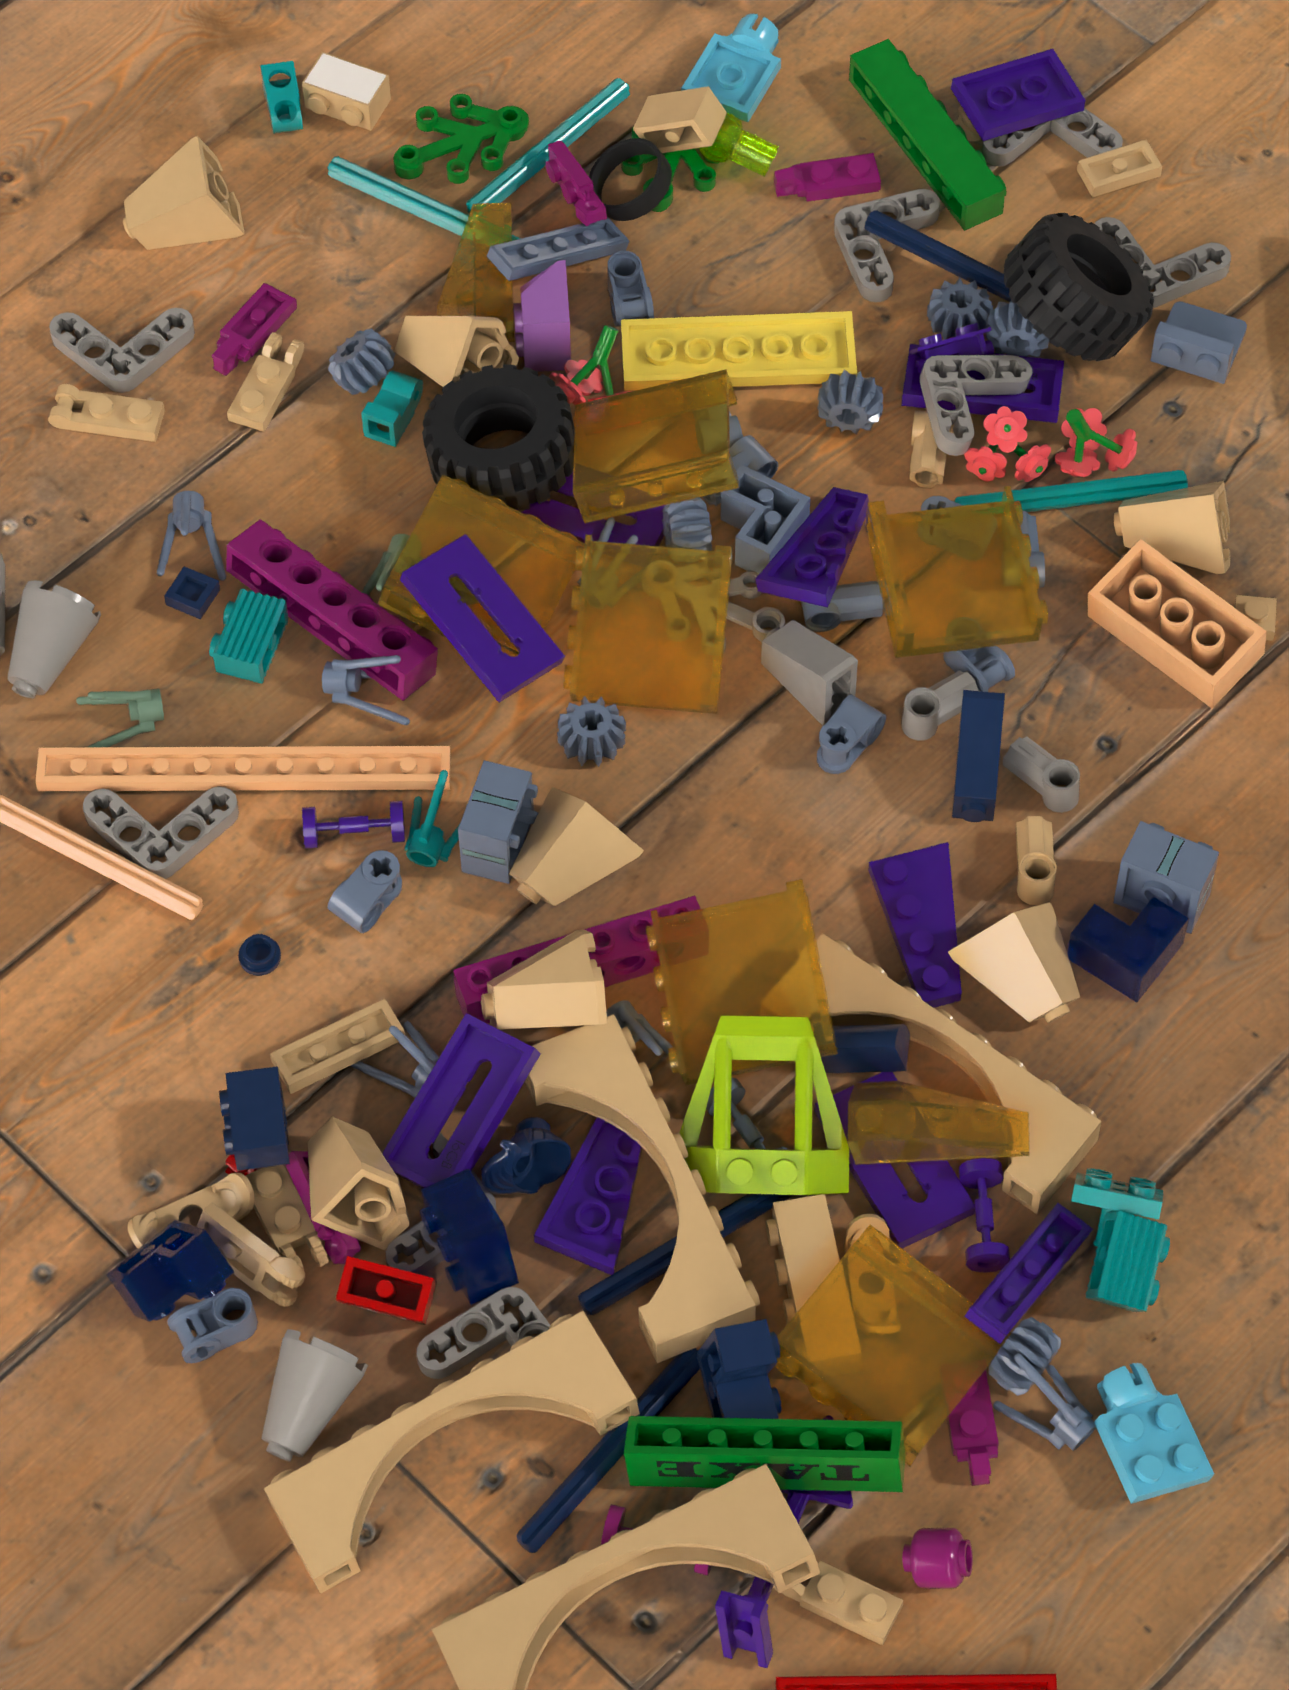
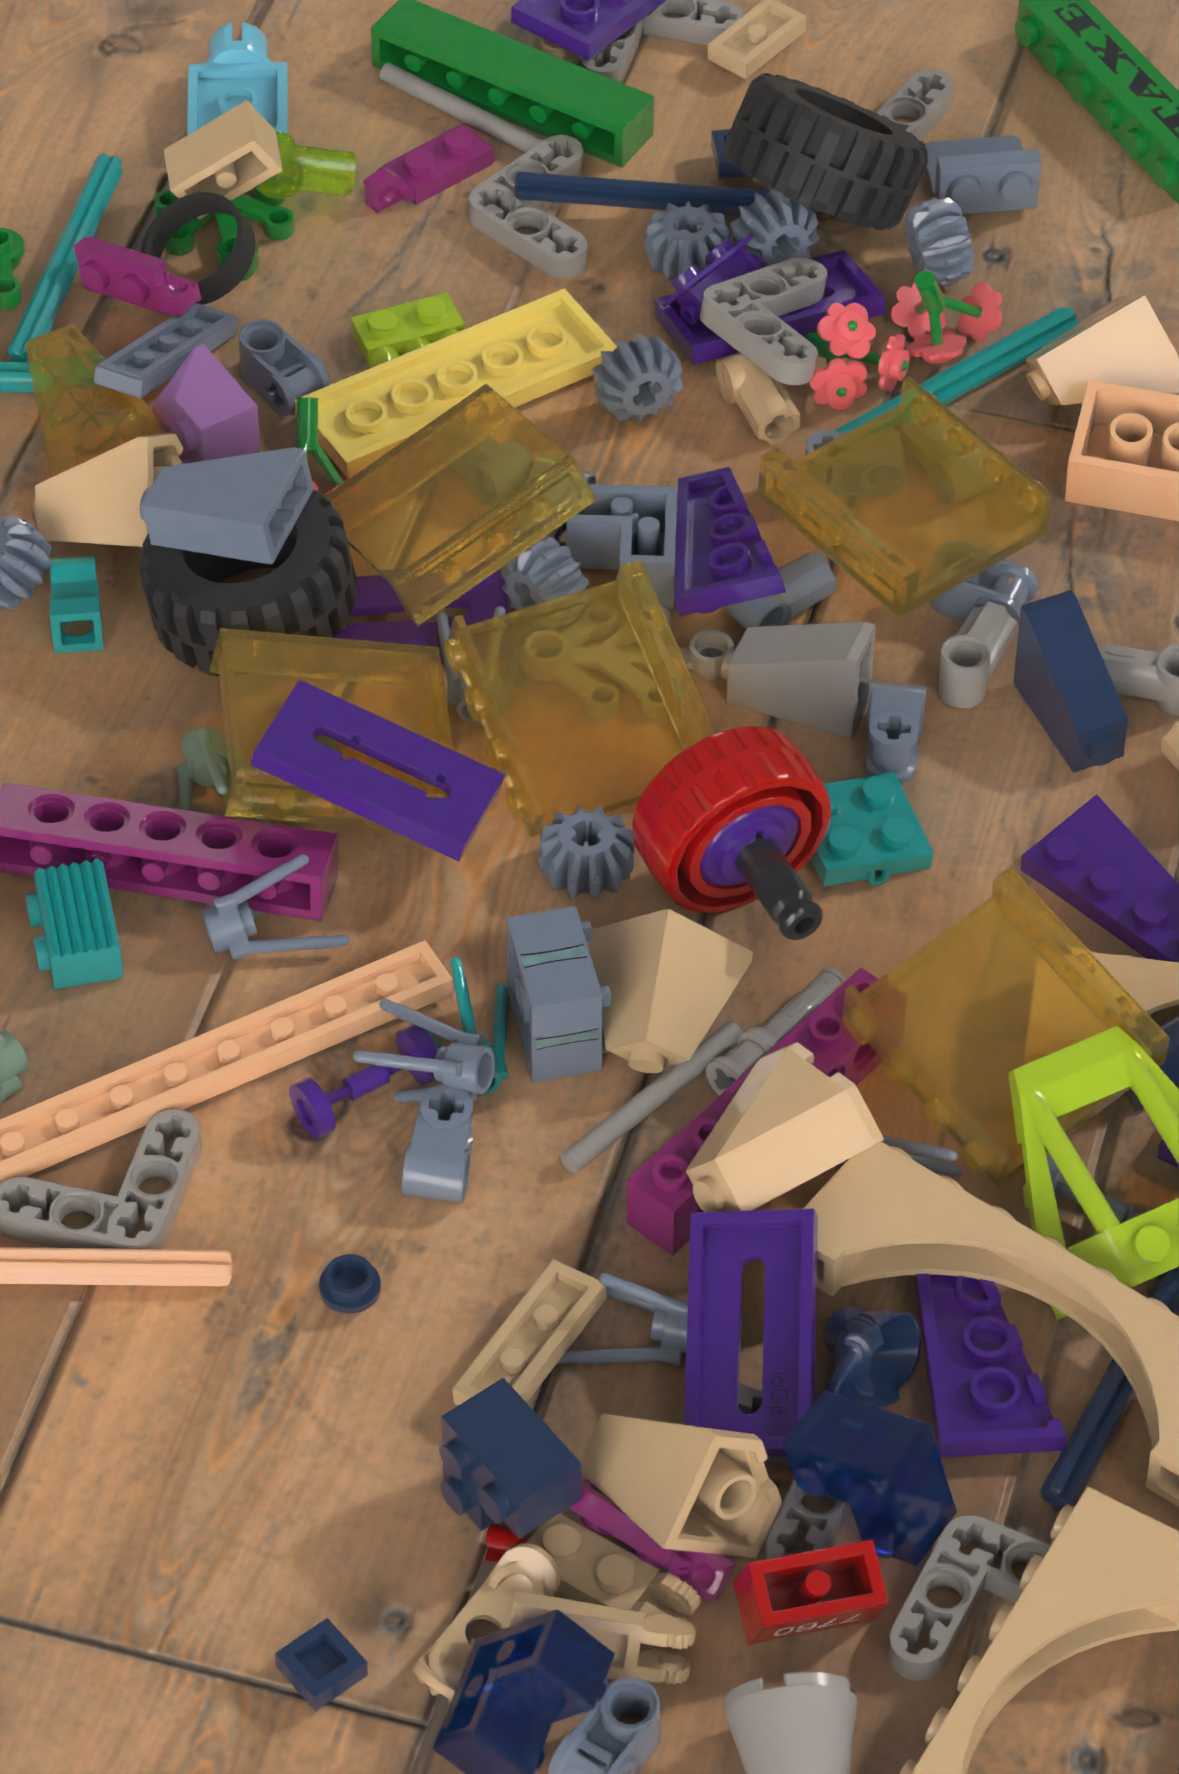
camera: 30 degrees left, 10 degrees down
(85, 1189) = (321, 1664): none -> dark blue plate
(404, 844) = (461, 1065): none -> sand blue plant
(499, 389) = (229, 504): none -> sand blue slope
(524, 918) = (649, 1099): none -> light grey bar
(608, 912) = (757, 1041): none -> light grey pin
(677, 761) = (736, 826): none -> red wheel
(734, 295) = (405, 327): none -> lime plate
(778, 794) = (869, 832): none -> teal plate
(881, 138) = (458, 107): none -> light grey bar
(1125, 385) = (939, 240): none -> sand blue gear

